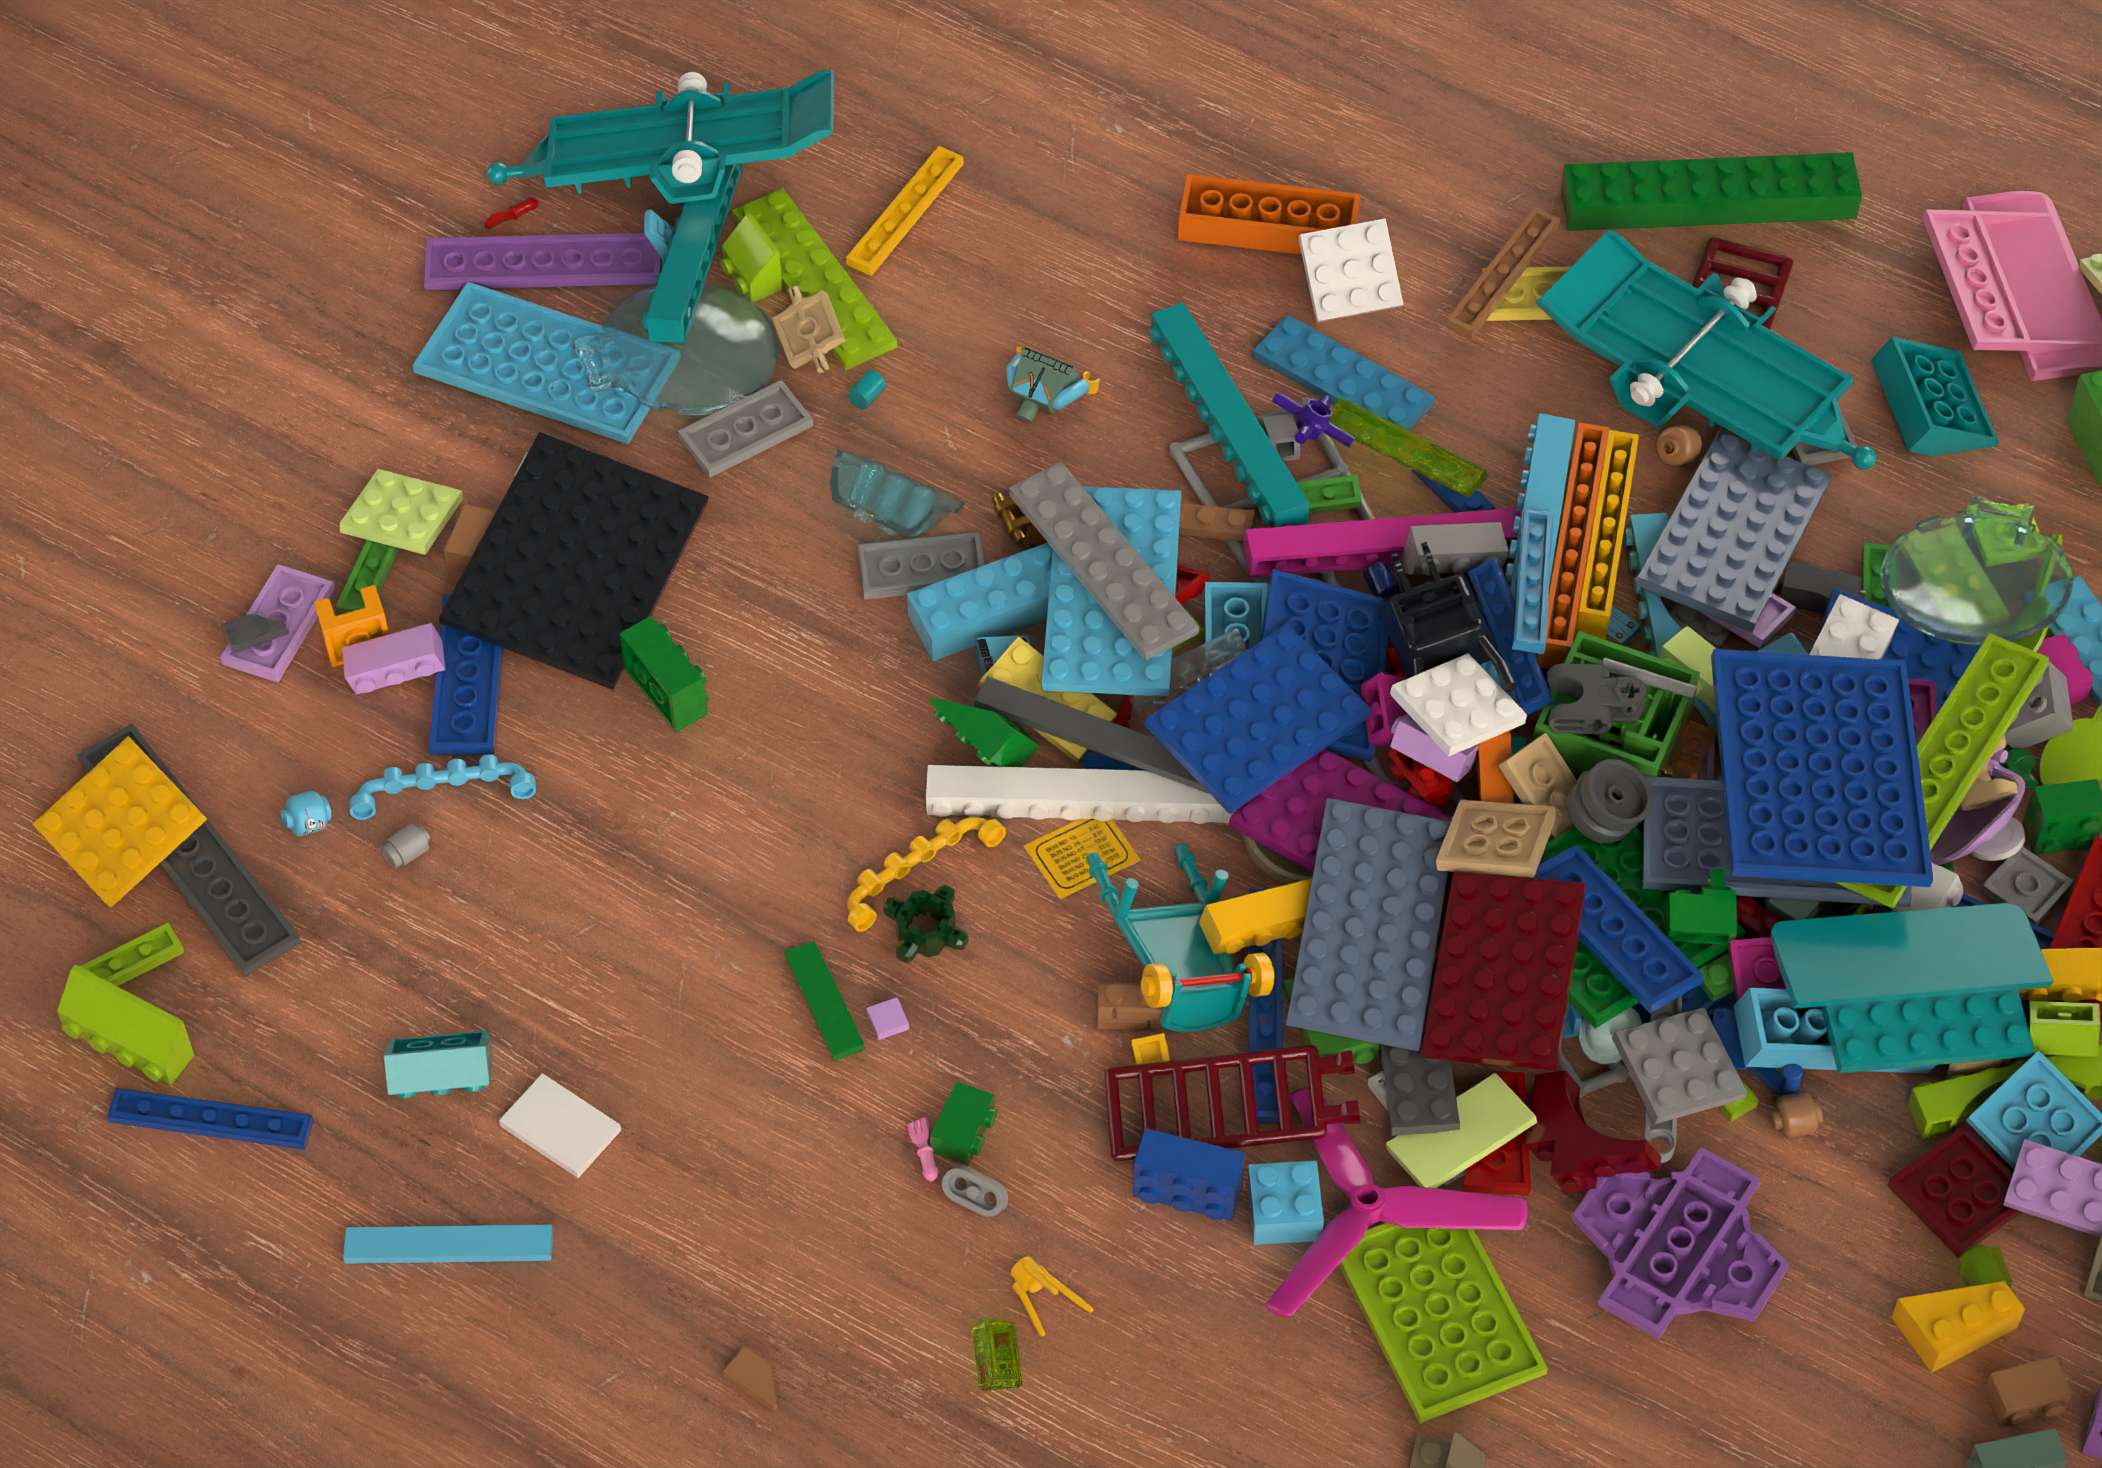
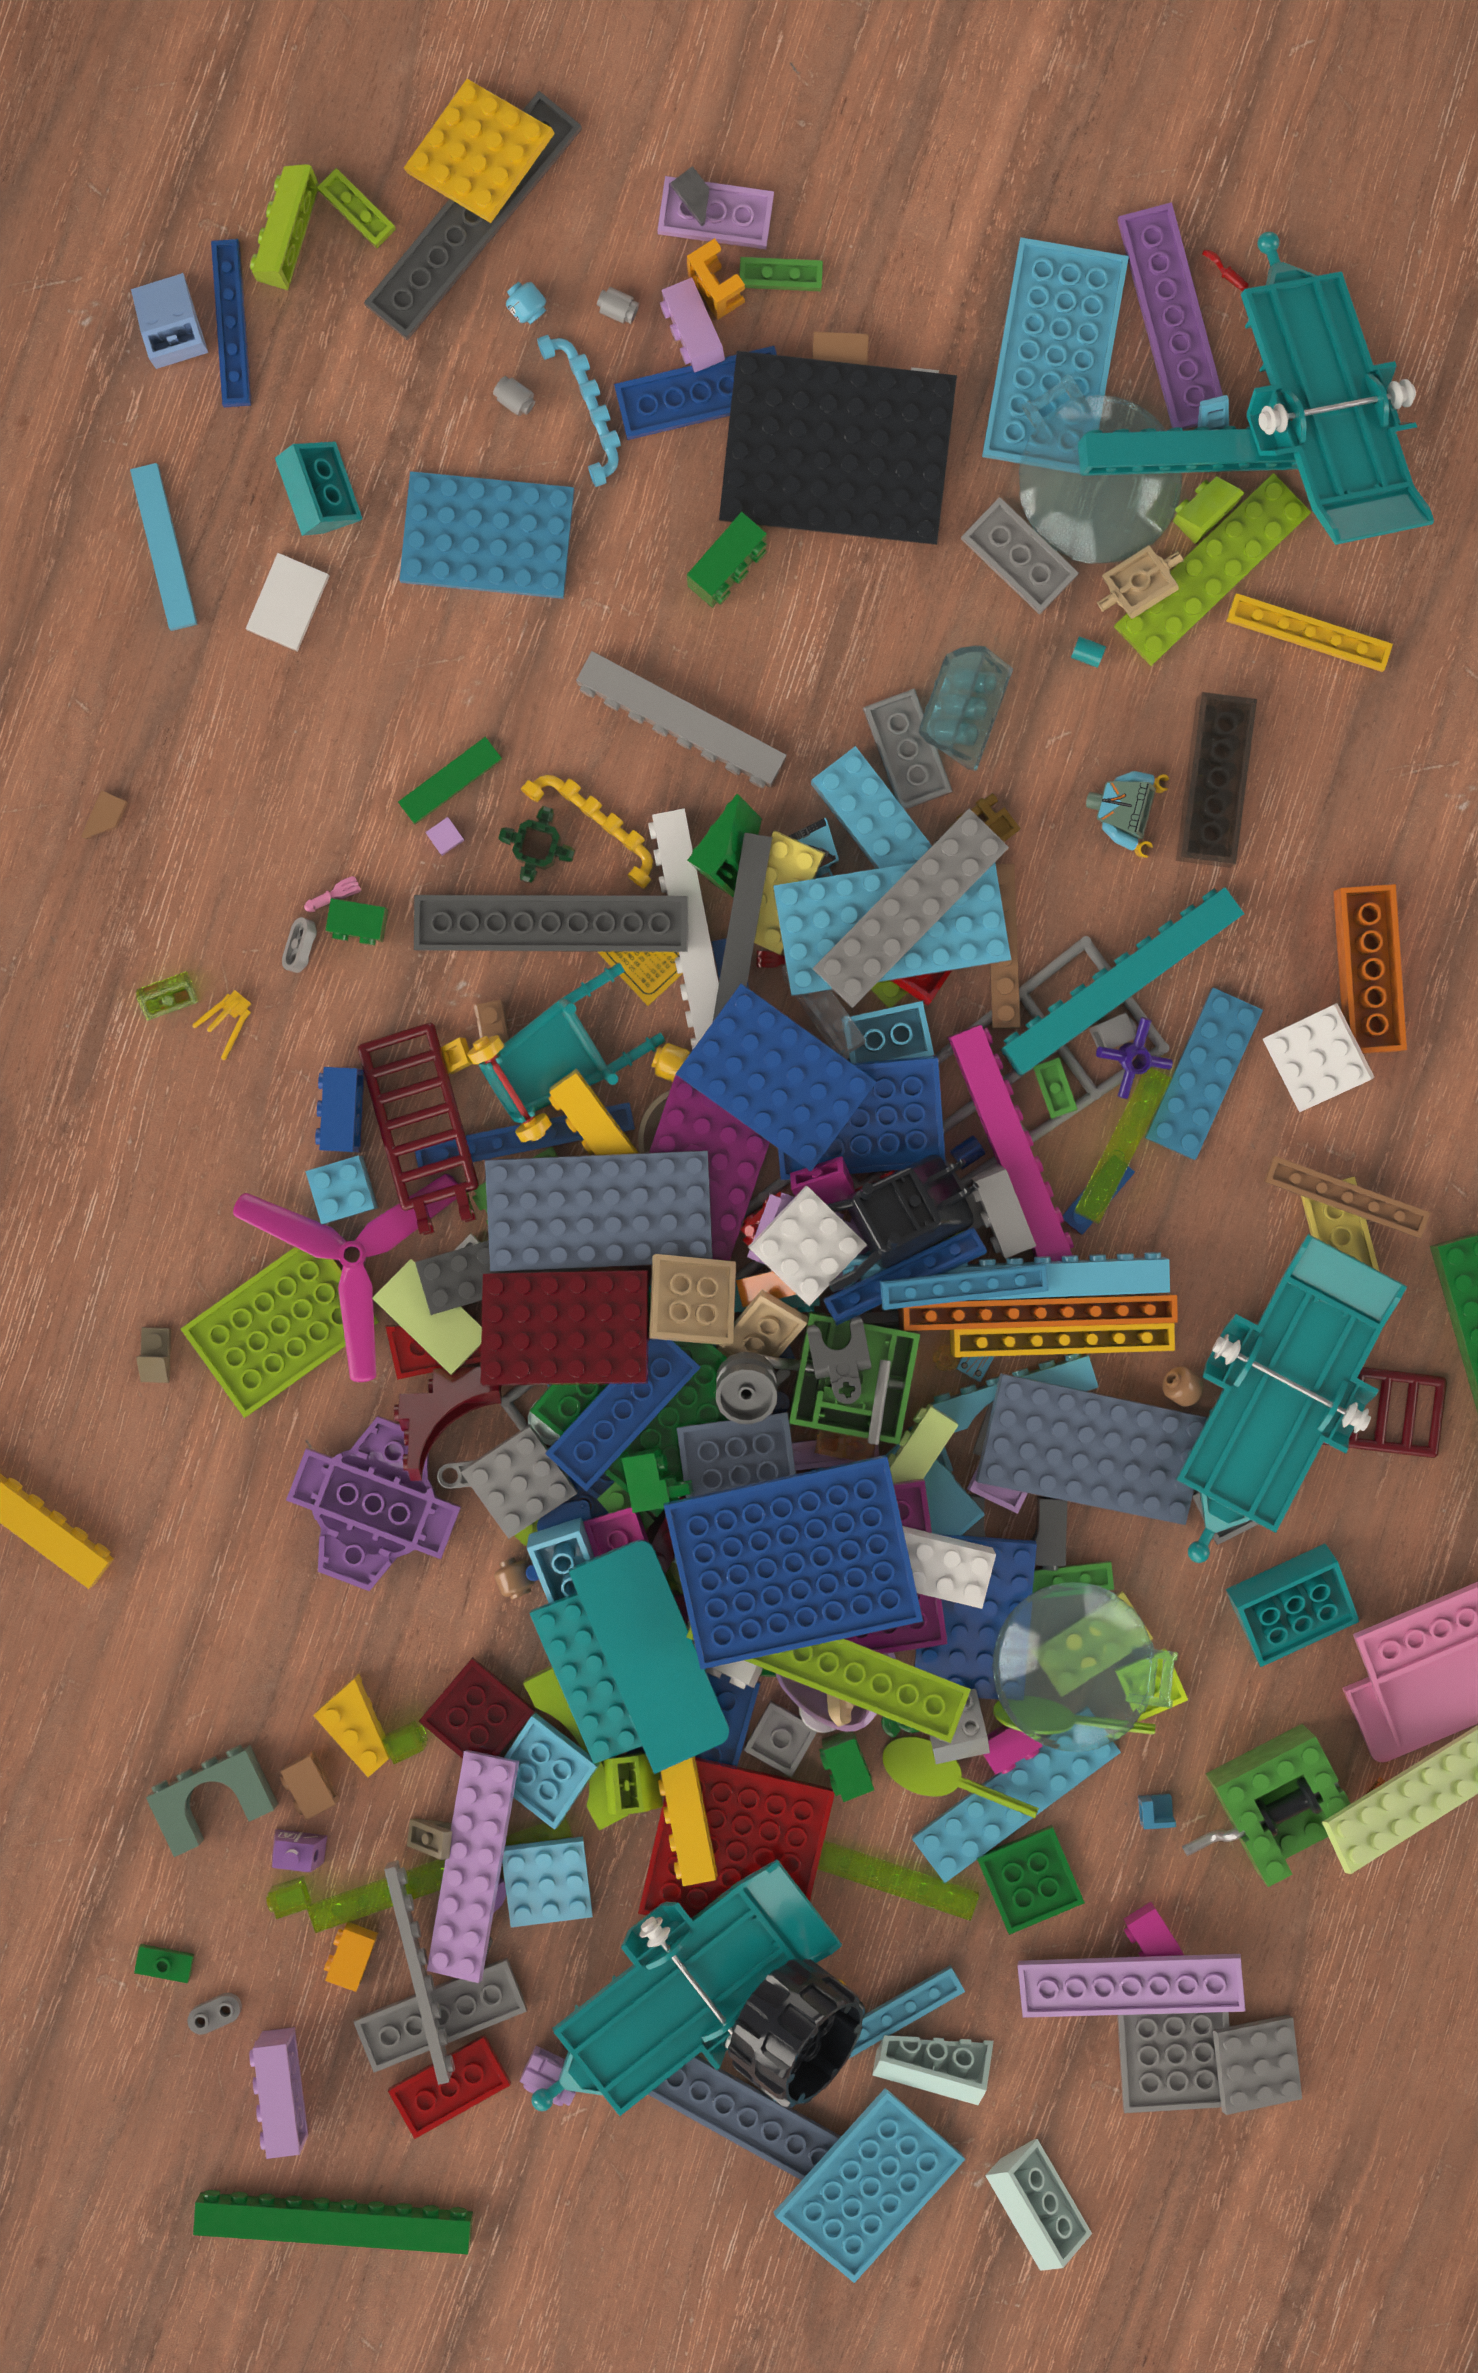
camera: 75 degrees right, 35 degrees up
(184, 1174) = (168, 321): none -> light blue slope
(343, 729) = (617, 305): none -> light grey brick
(401, 511) = (856, 280): yellowish green plate -> none
(551, 909) = (486, 535): none -> dark azure plate
(824, 759) = (680, 719): none -> light grey brick
(1021, 923) = (551, 923): none -> dark grey plate
(1036, 304) = (1216, 779): none -> clear smoke brick
(1213, 838) = (669, 1060): none -> yellow head

